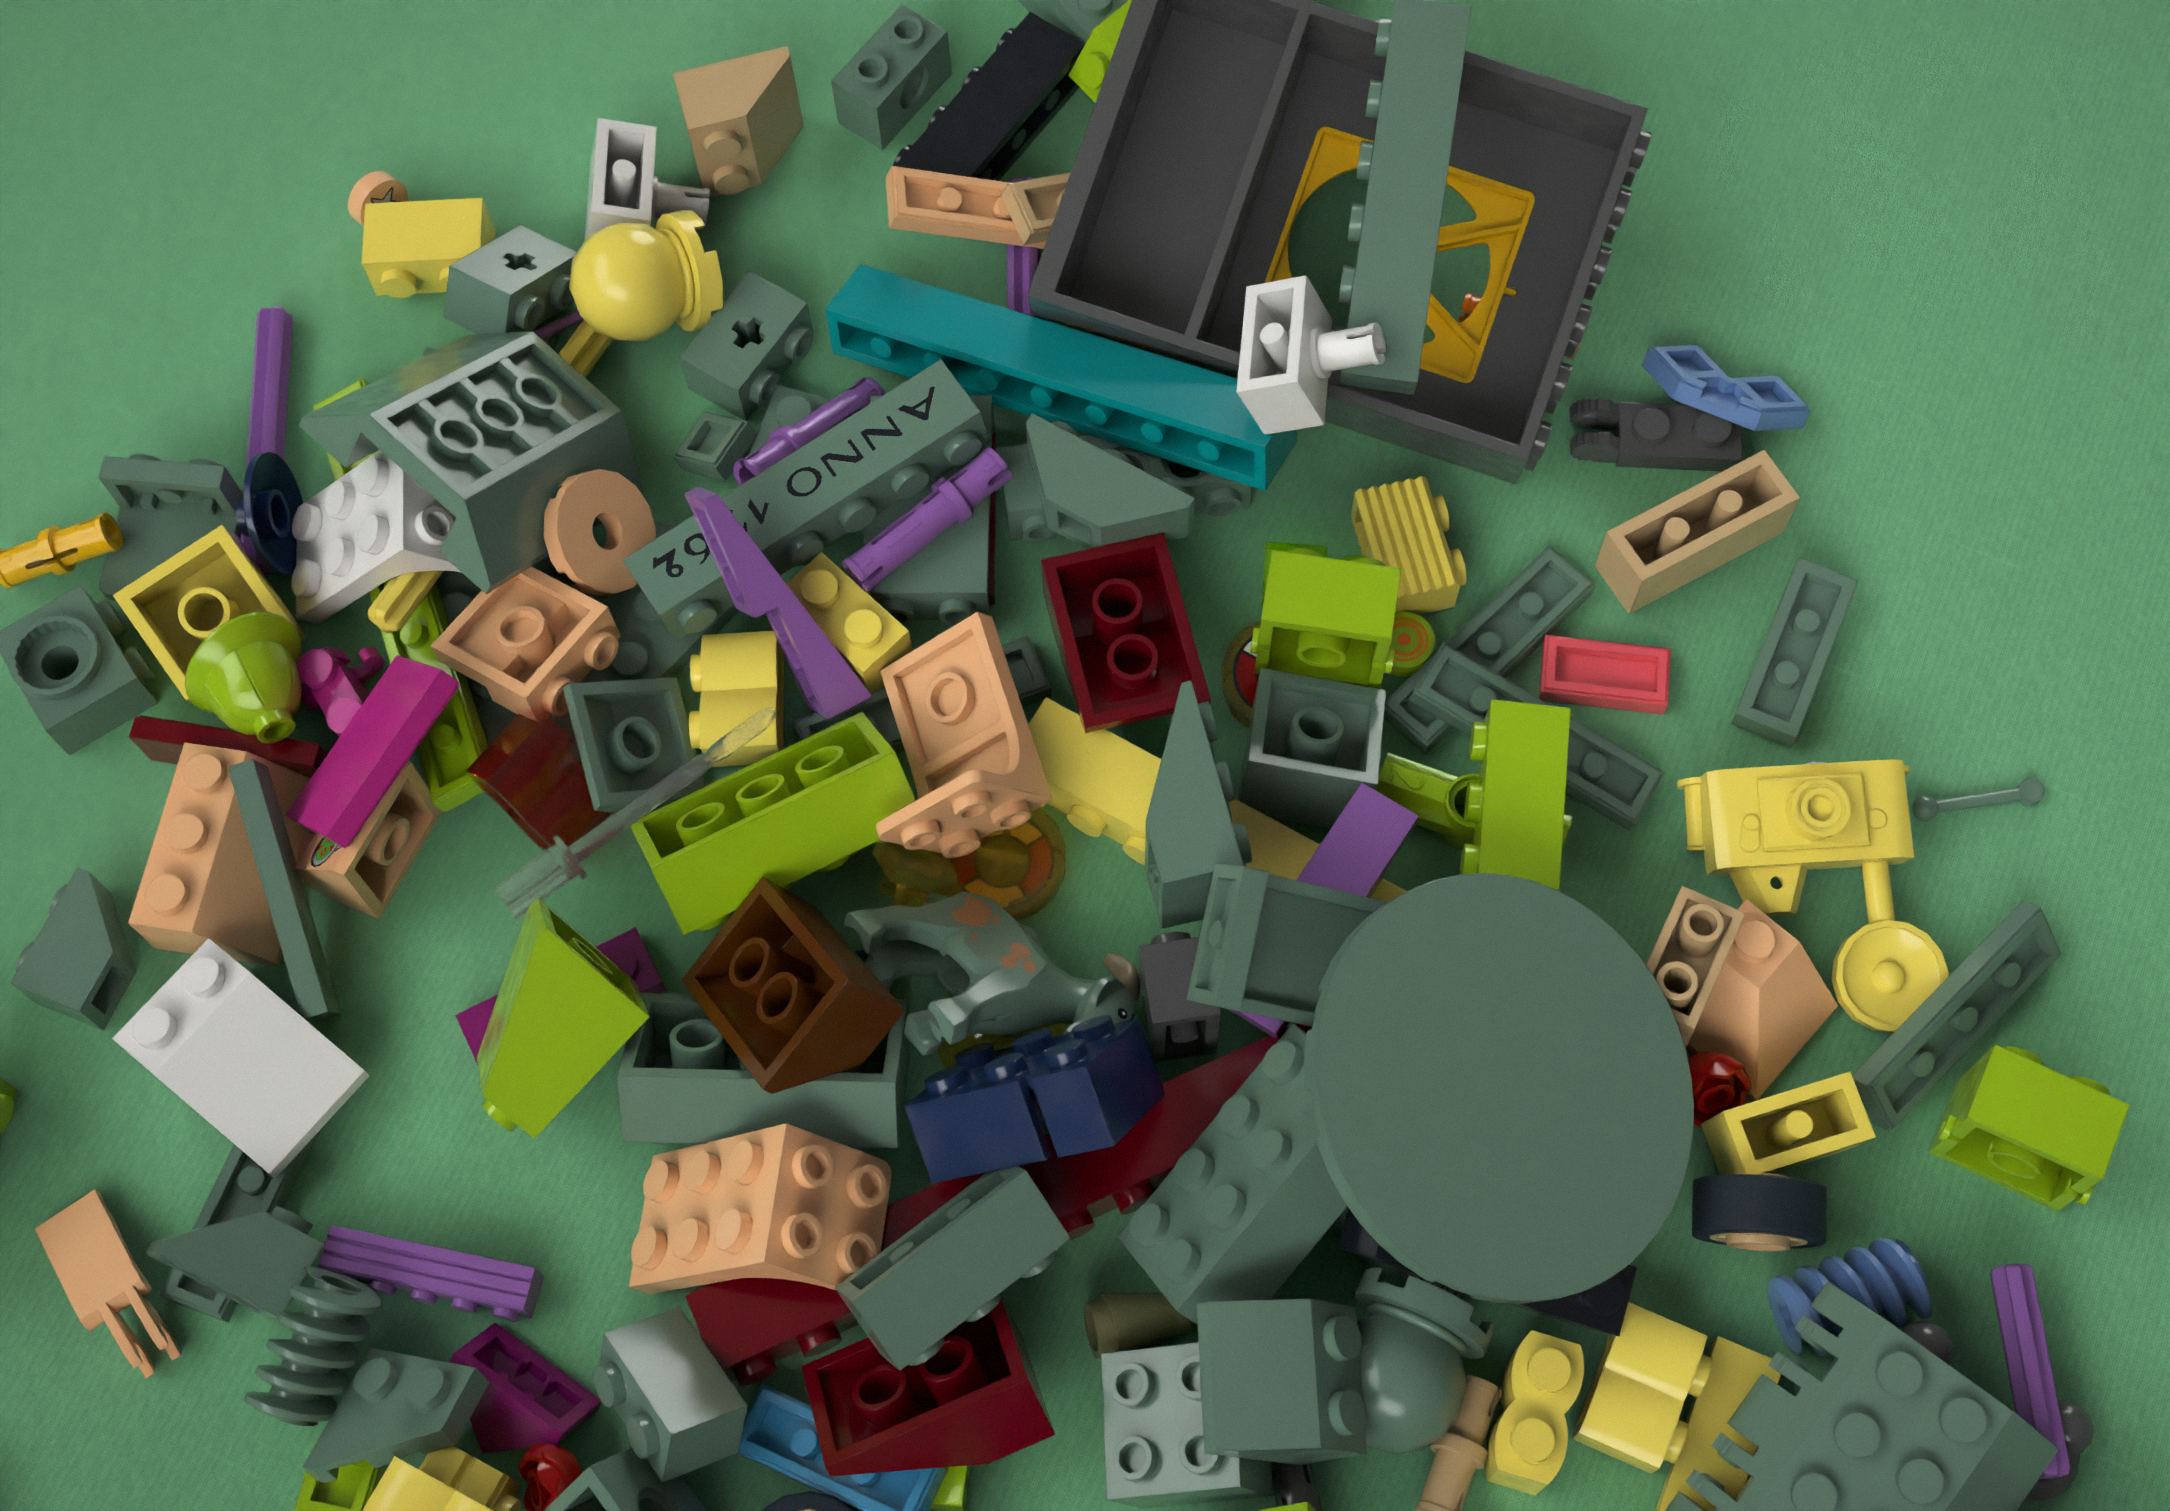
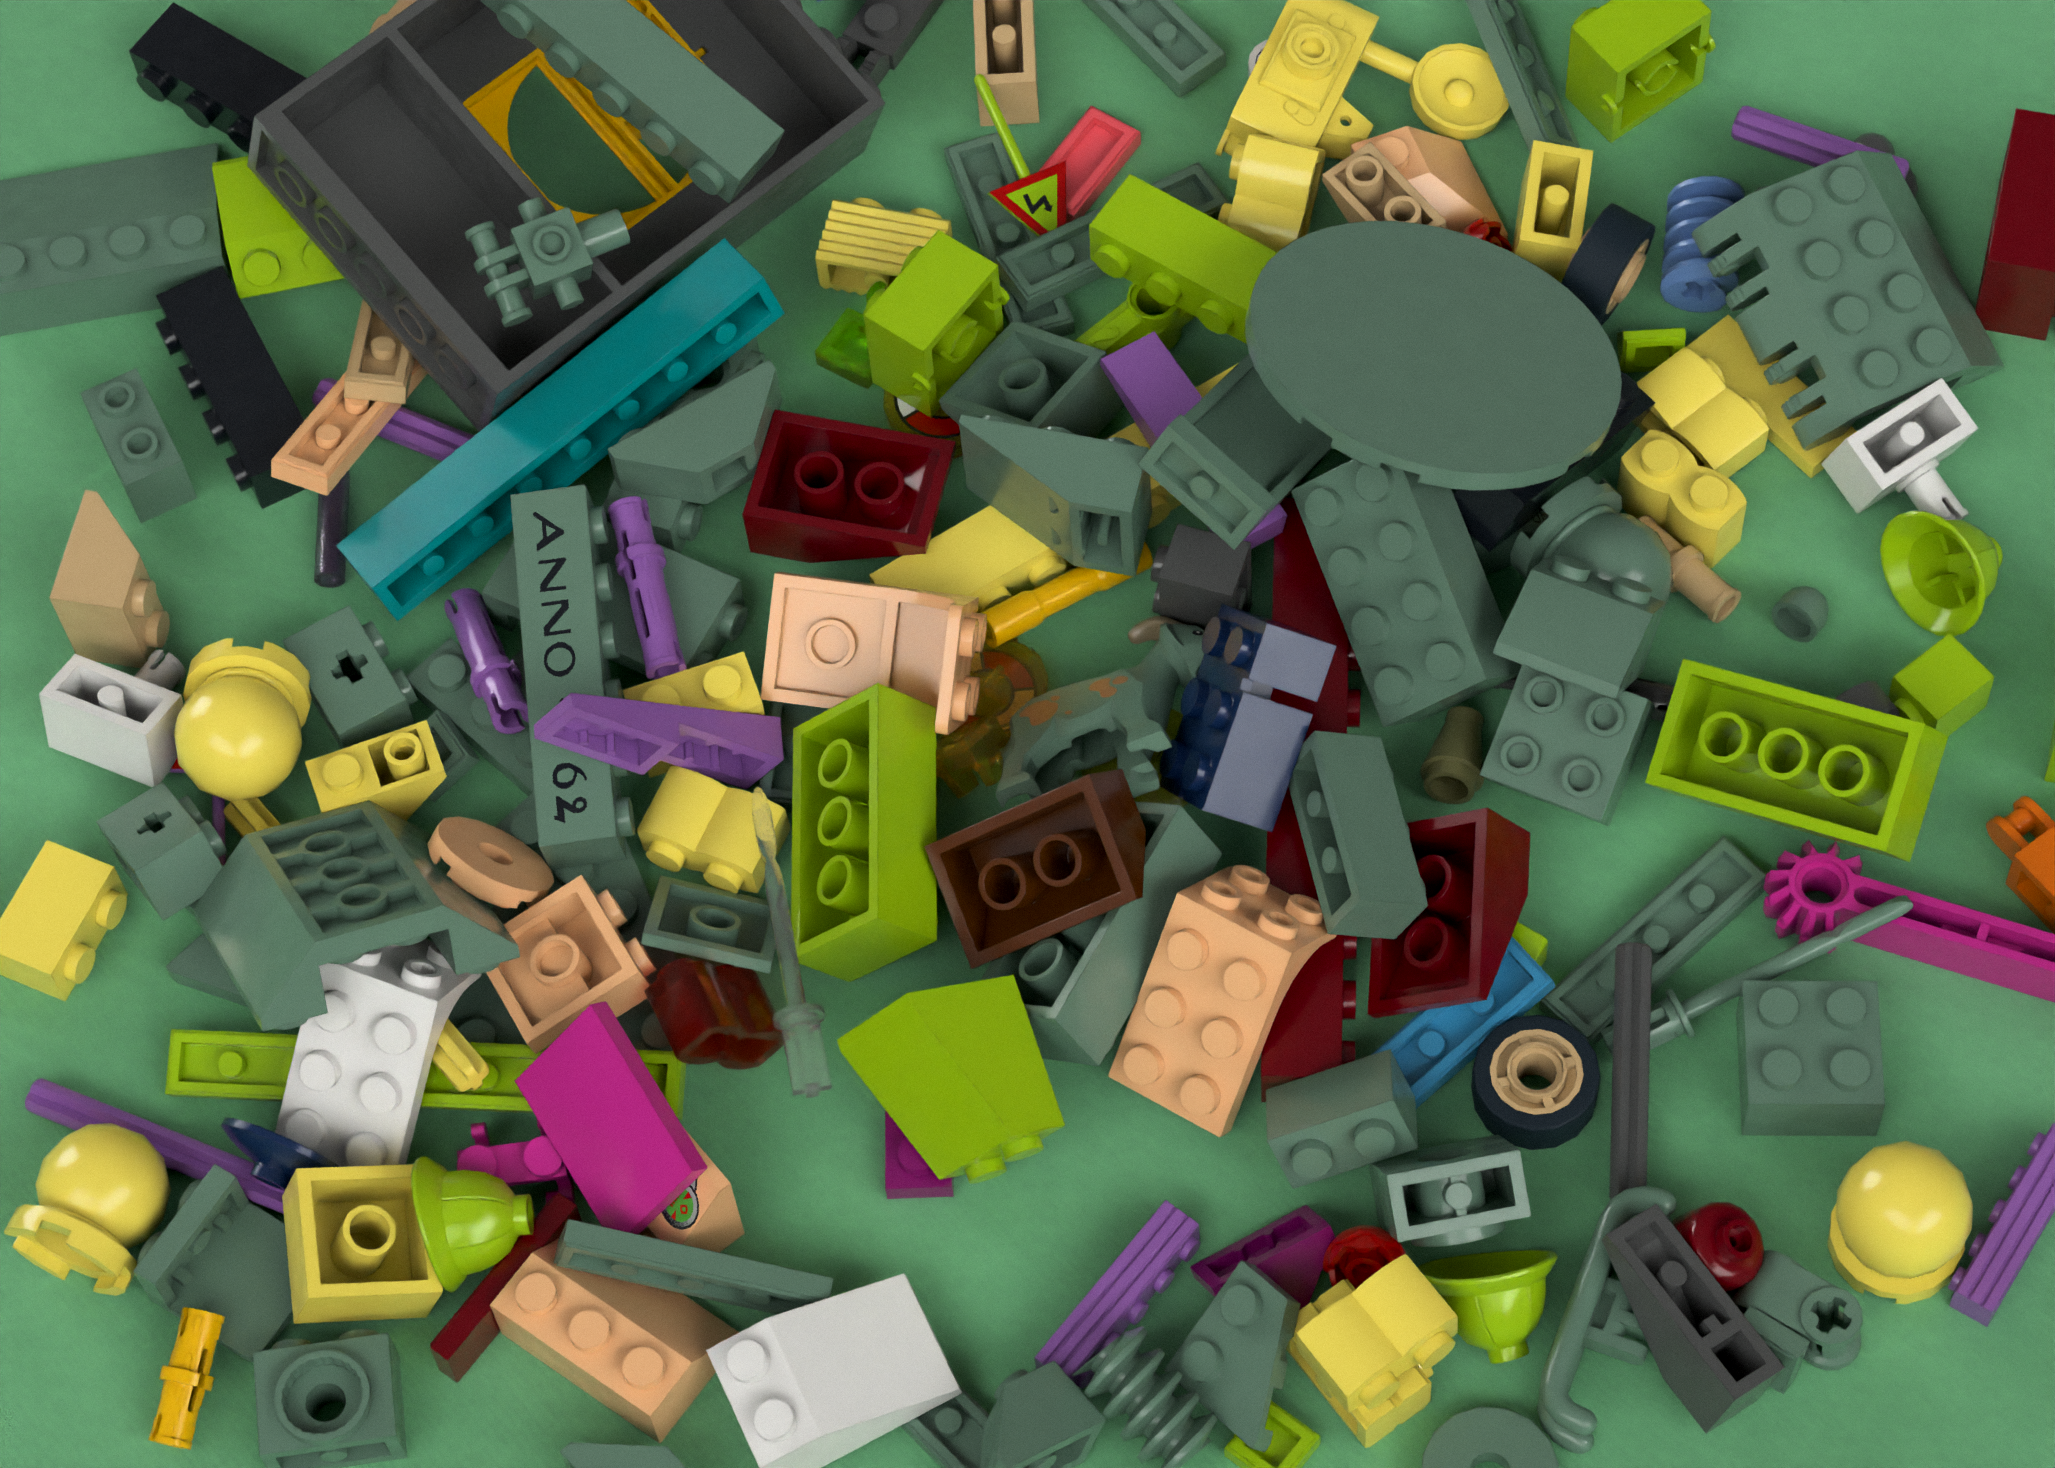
camera: 60 degrees left, 5 degrees down
(171, 400) = (95, 1201): none -> light yellow tile
(656, 407) = (390, 770): none -> light yellow slope
(906, 254) = (330, 530): none -> piece
(1094, 855) = (1033, 606): none -> yellow piece
(1168, 254) = (549, 252): none -> sand green piece
(1292, 352) = (706, 204): white brick -> none
(1533, 649) = (1035, 198): none -> piece
(1646, 858) = (1273, 189): none -> light yellow brick
(1703, 1300) = (1648, 348): none -> lime slope

